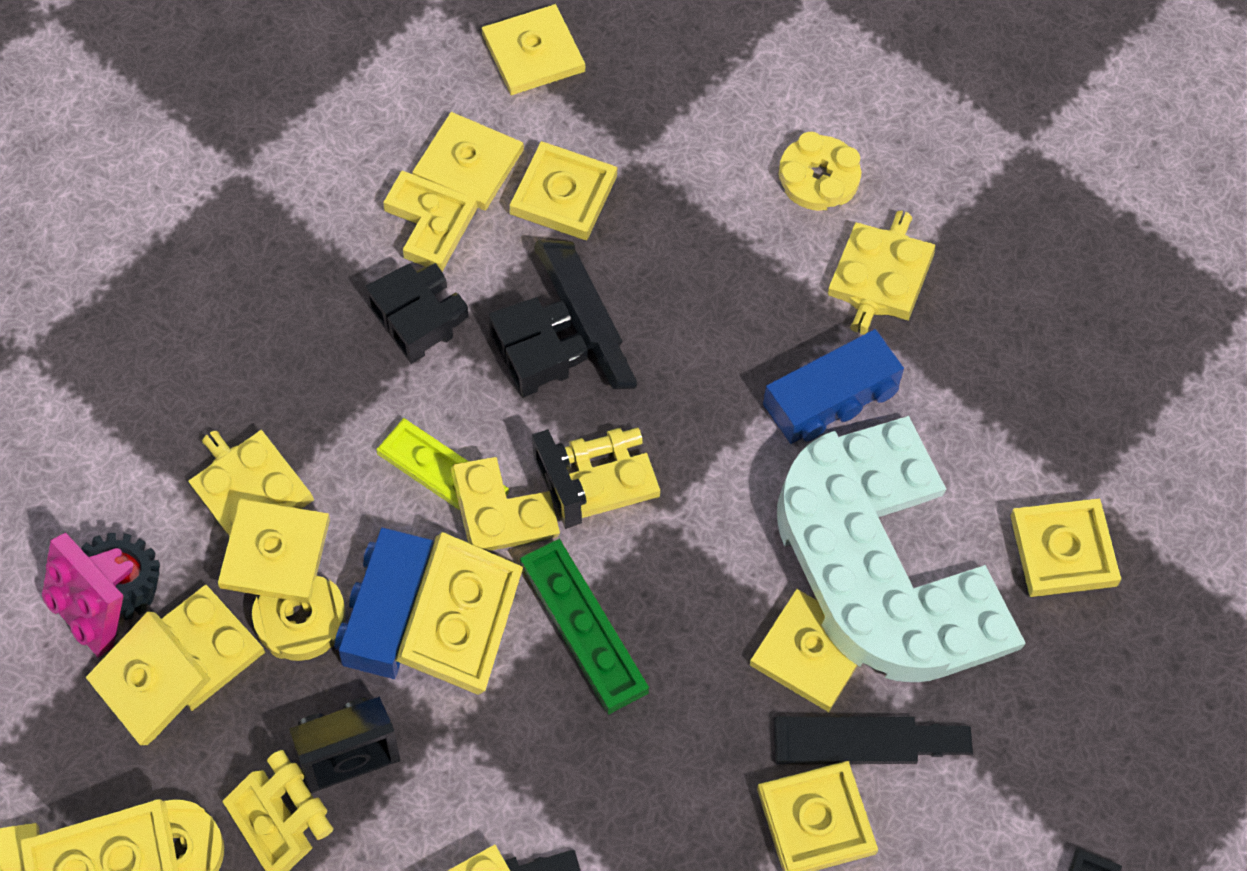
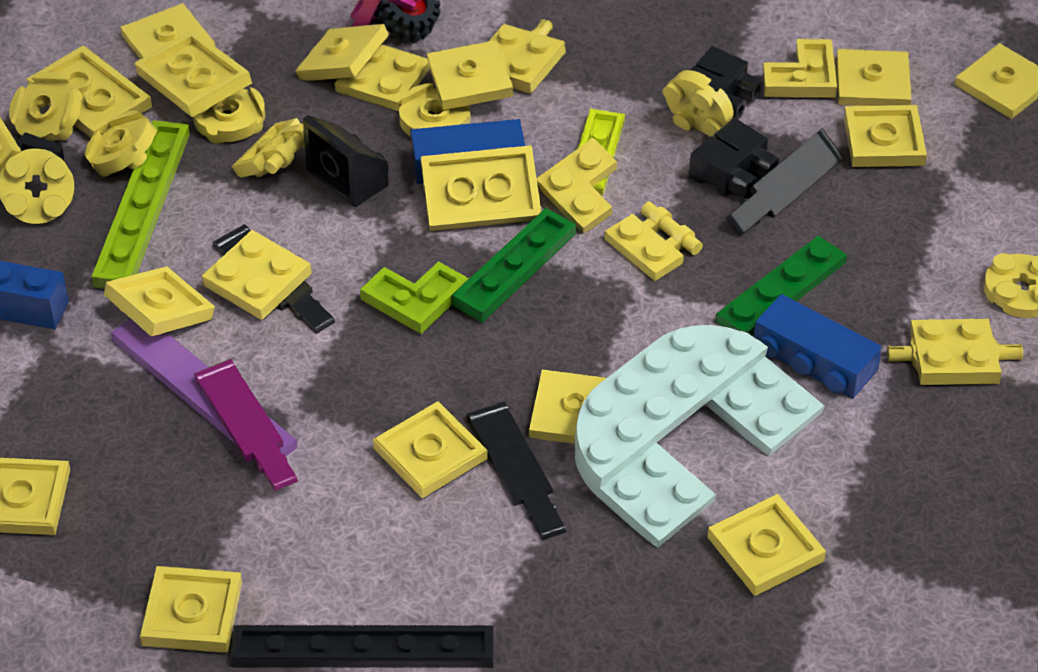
camera: 70 degrees right, 15 degrees down
(441, 337) = (697, 103): none -> light yellow plate
(553, 465) = (620, 200): black plate -> none
(595, 752) = (412, 303): none -> lime plate
(729, 383) = (791, 278): none -> green plate

